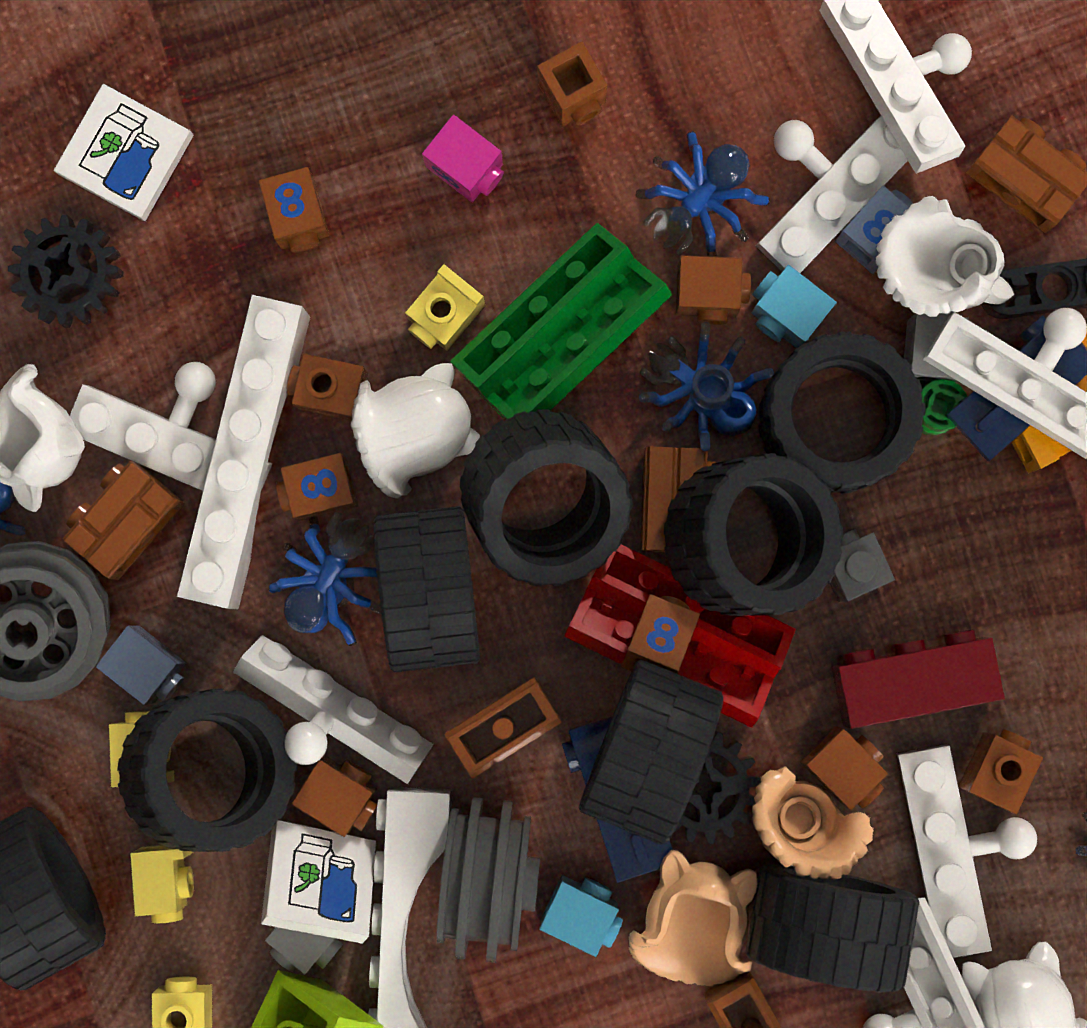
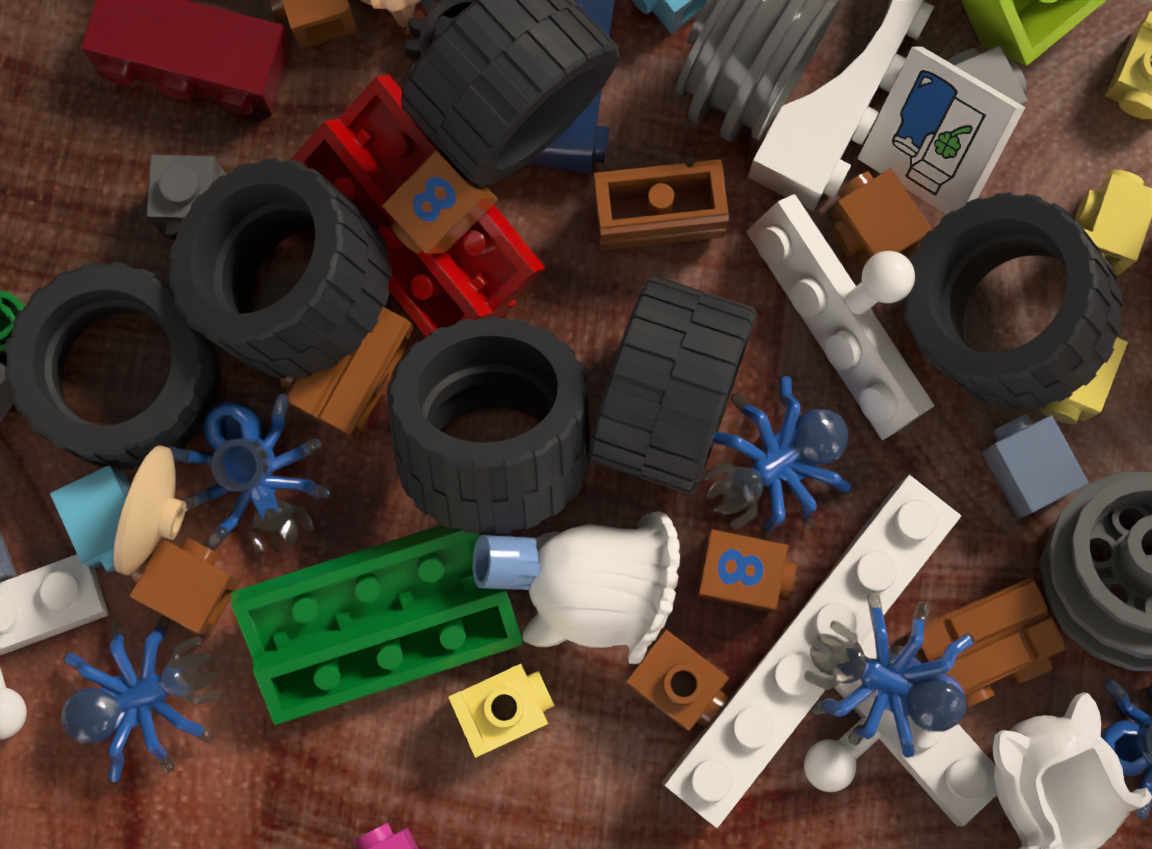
camera: 160 degrees left, 5 degrees down
(174, 458) = (896, 675): none -> animal
(486, 405) = (505, 562): none -> medium blue hose
(753, 317) = (148, 511): none -> tan dish

